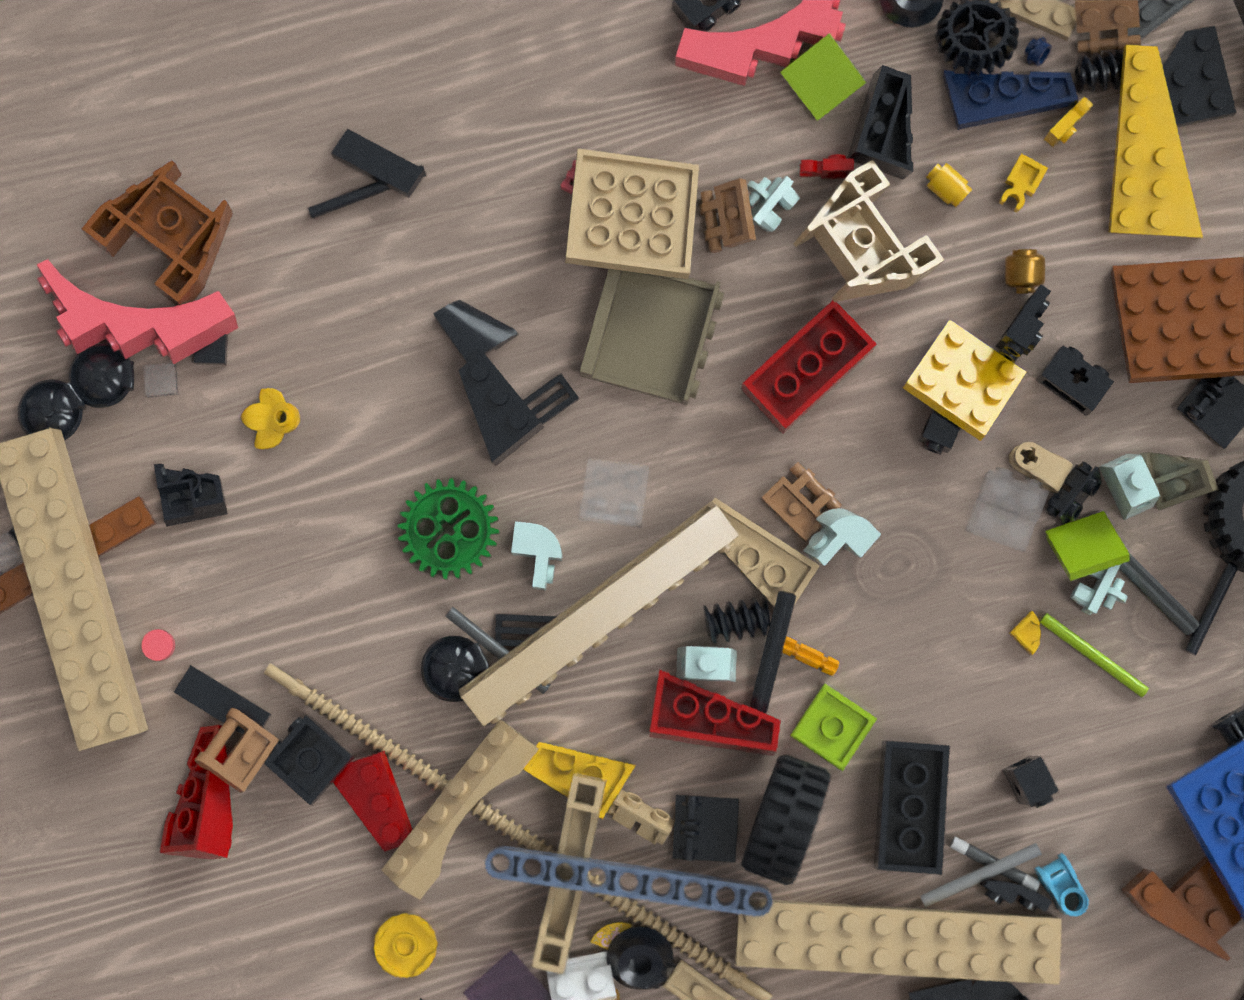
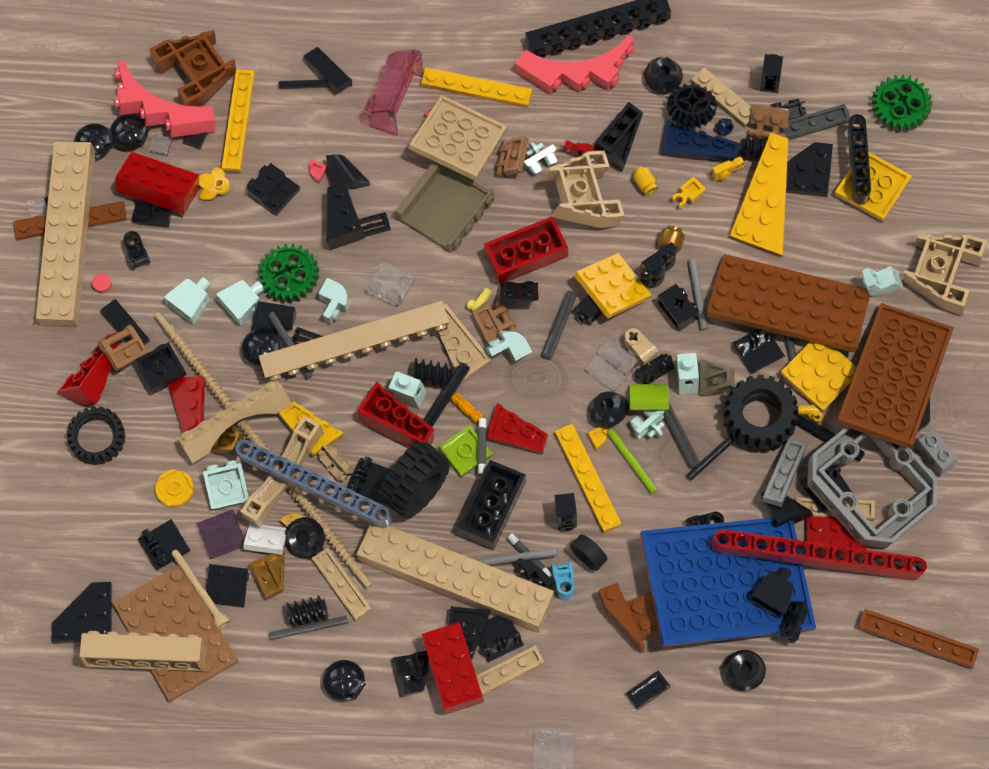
camera: 20 degrees right, 15 degrees down
(182, 451) = (157, 183): none -> red brick
(193, 575) = (136, 252): none -> black piece
(211, 910) = (83, 418): none -> black tyre
(269, 297) = (238, 120): none -> yellow plate
(309, 626) = (189, 299): none -> light aqua torso
(368, 395) = (272, 189): none -> black plate
(391, 600) = (240, 300): none -> light aqua torso
(426, 339) = (317, 170): none -> coral tile
(467, 846) = (227, 441): none -> pearl gold wing
(468, 601) = (285, 314): none -> black slope
(485, 915) = (226, 484): none -> light aqua plate
(502, 166) = (392, 88): none -> clear pink windscreen
(625, 114) = (476, 87): none -> yellow plate
(766, 474) = (481, 300): none -> light yellow arm
(823, 76) = (595, 100): lime tile -> none
(824, 442) = (519, 291): none -> black hinge
(859, 715) = (481, 446): none -> dark grey bar
(897, 670) = (513, 431): none -> red wing
(902, 469) = (559, 325): none -> dark grey axle
(1029, 585) = (608, 409): none -> black piece
(1037, 706) = (588, 478): none -> yellow plate
(1089, 834) = (588, 552): none -> black tyre
(1094, 344) = (698, 294): none -> light grey bar

